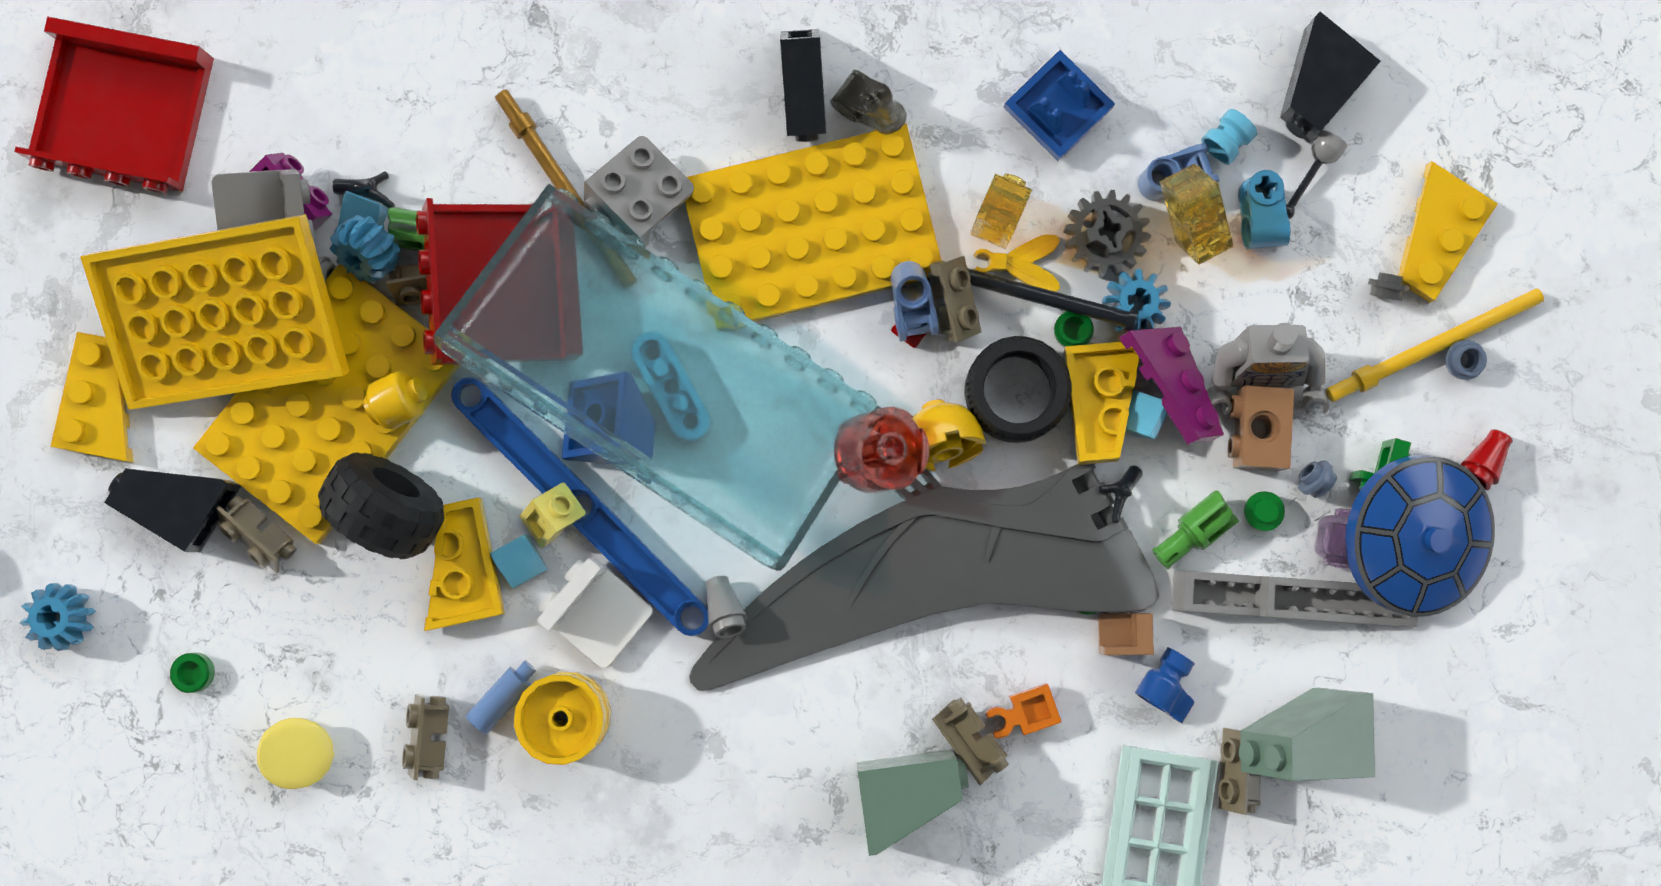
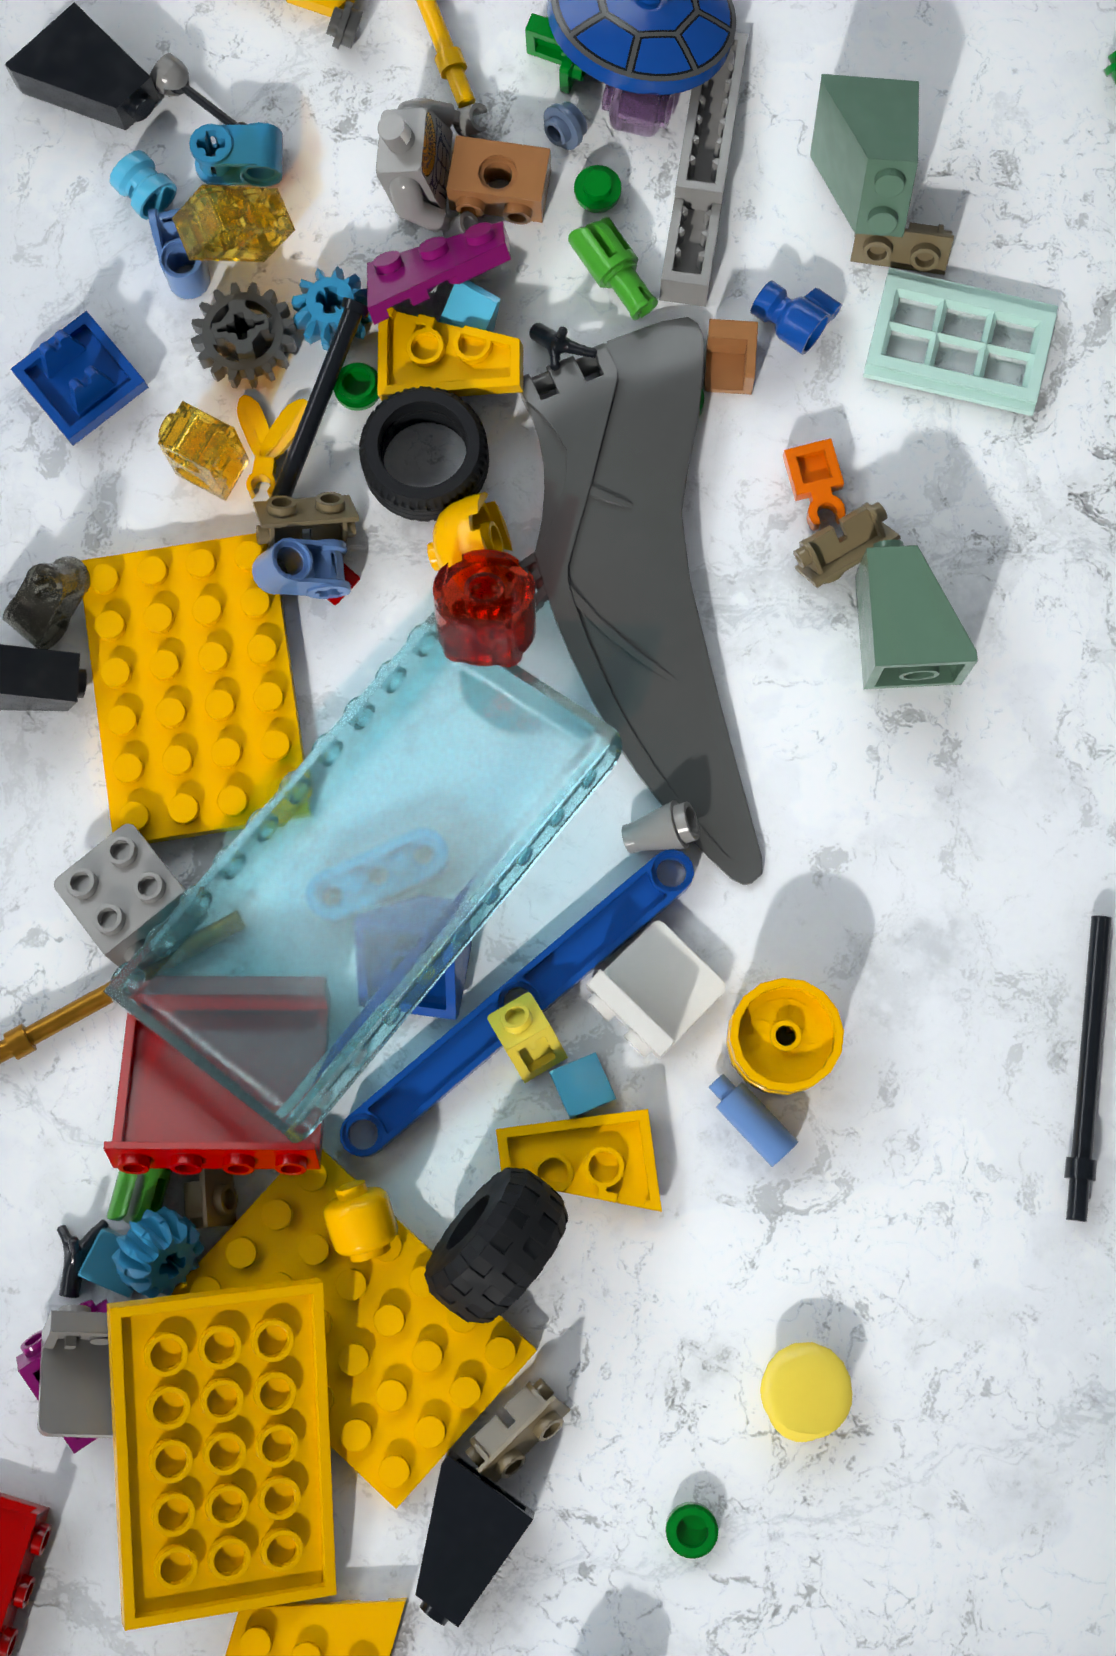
camera: 85 degrees left, 5 degrees down
(422, 752) = (819, 1228): dark tan hinge -> none

